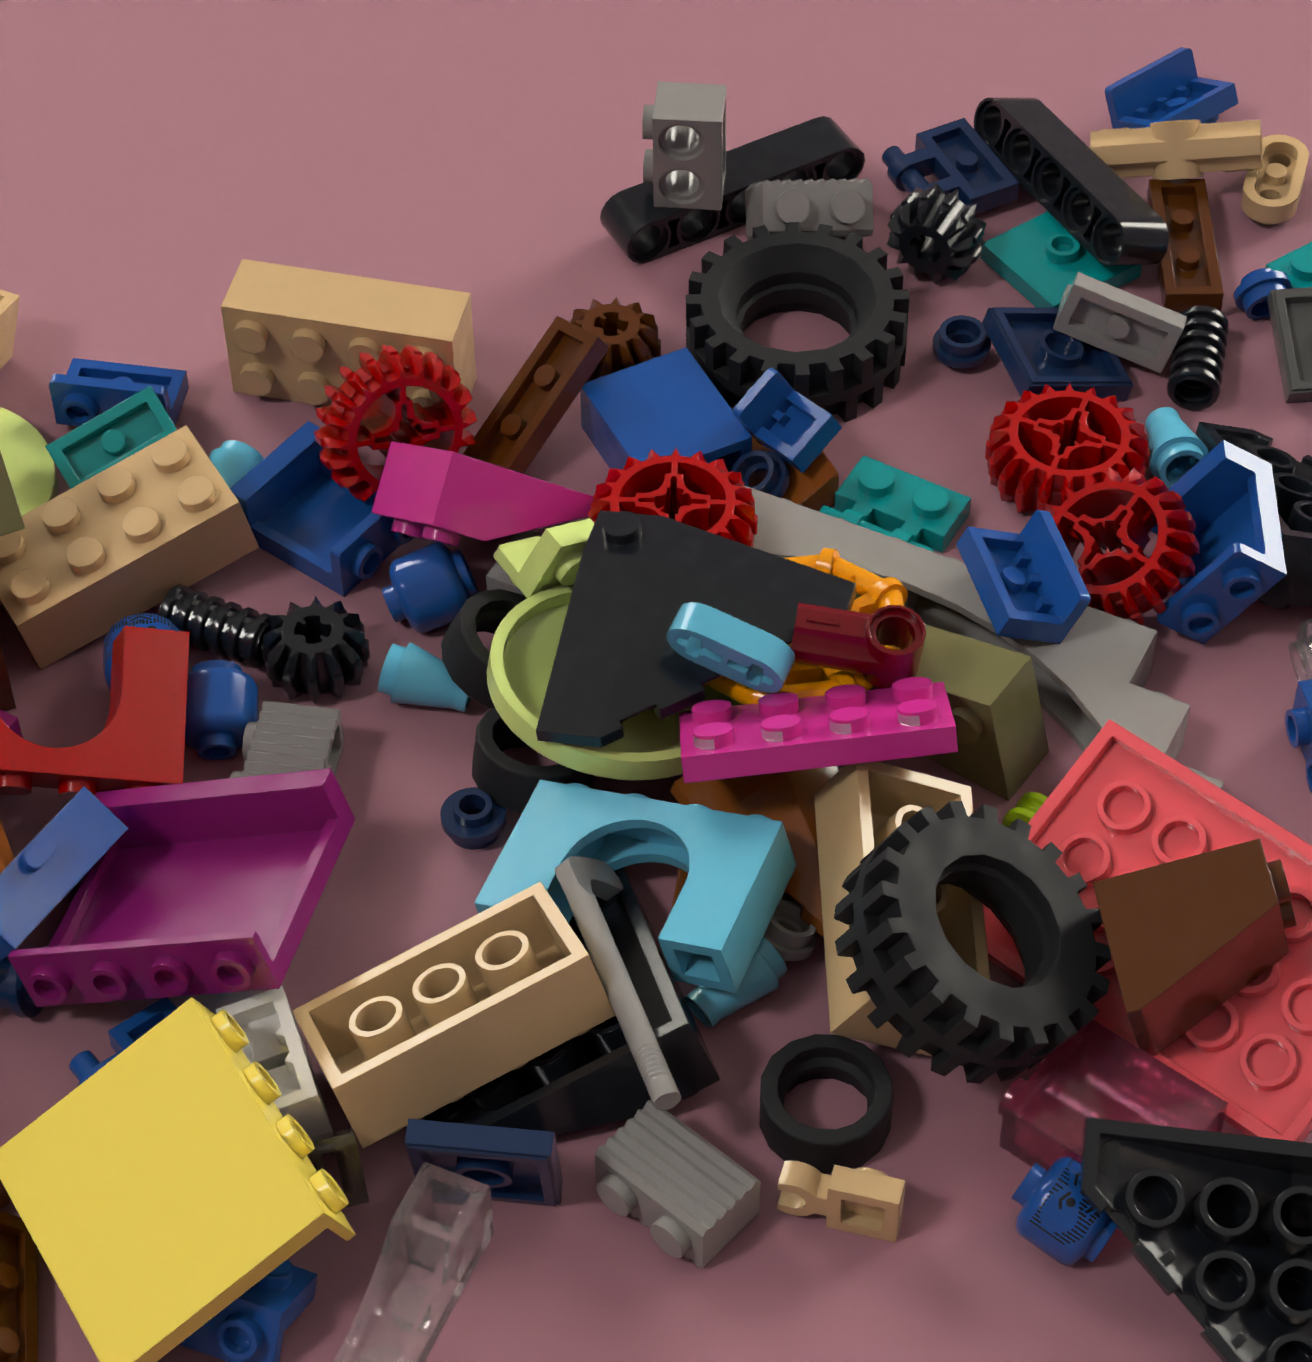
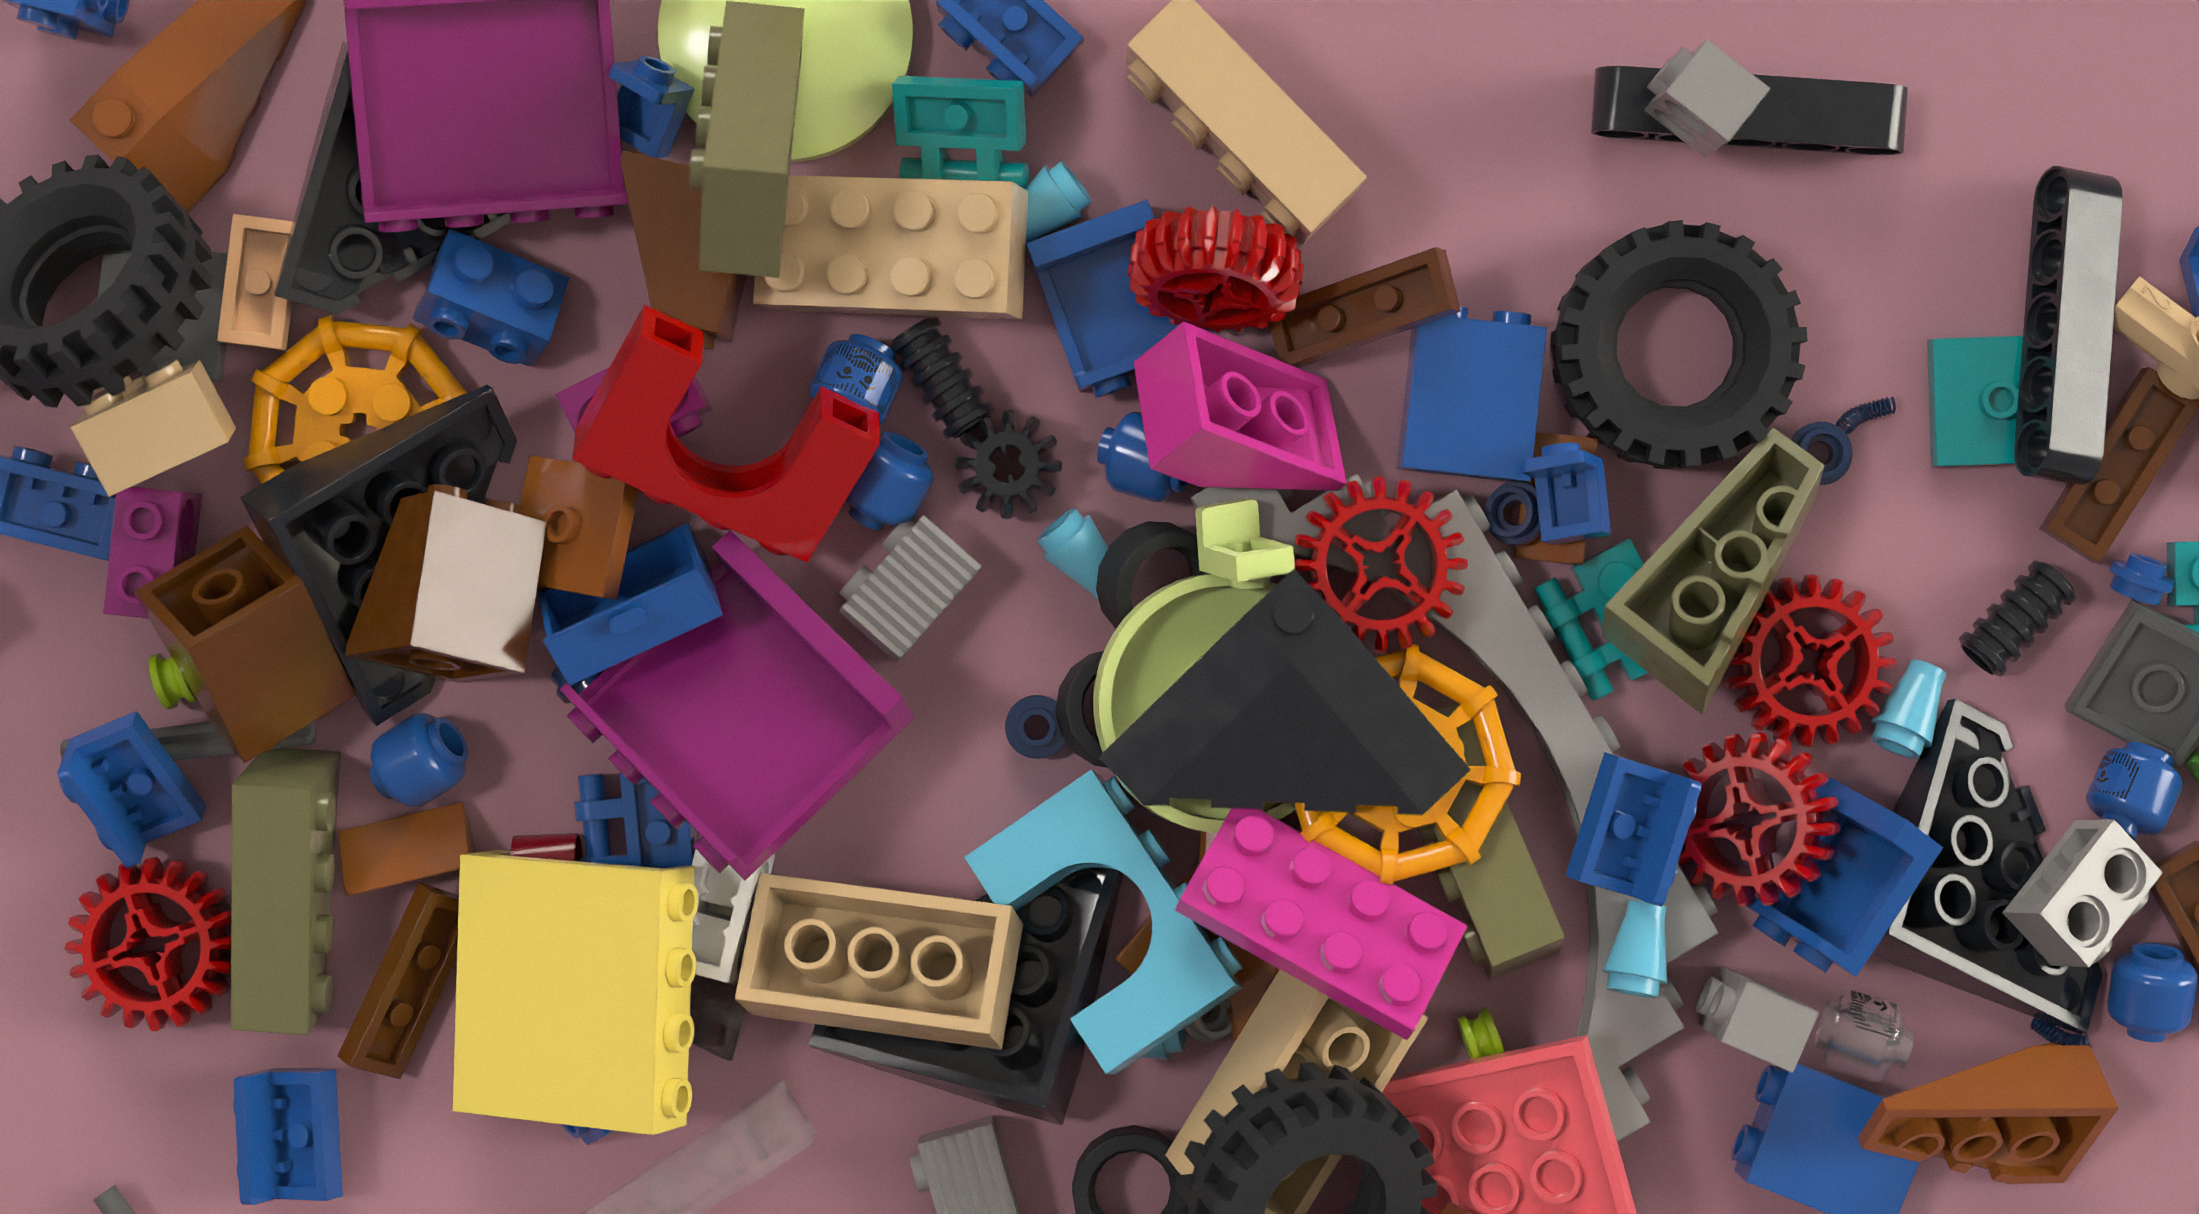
camera: 30 degrees right, 40 degrees up
(512, 1161) = (828, 1104): dark blue plate -> none
(581, 882) = (1046, 906): light grey piece -> none
(625, 330) = (1516, 254): reddish brown gear -> none
(730, 647) = (1299, 804): medium azure beam -> none
(832, 202) = (1789, 207): light grey brick -> none
(857, 641) = (1409, 856): dark red piece -> none
(936, 233) = (1887, 318): black gear -> none
(938, 412) = (1707, 580): none -> olive wedge
(958, 161) = (1992, 224): dark blue plate -> none
(973, 311) = (1864, 412): none -> dark blue leg
(1043, 356) = (1893, 530): dark blue plate -> none
(1107, 662) = (1639, 952): none -> medium azure cone
(1119, 322) = (1972, 536): light grey panel -> none
(1240, 668) = (1755, 1018): none -> light grey brick

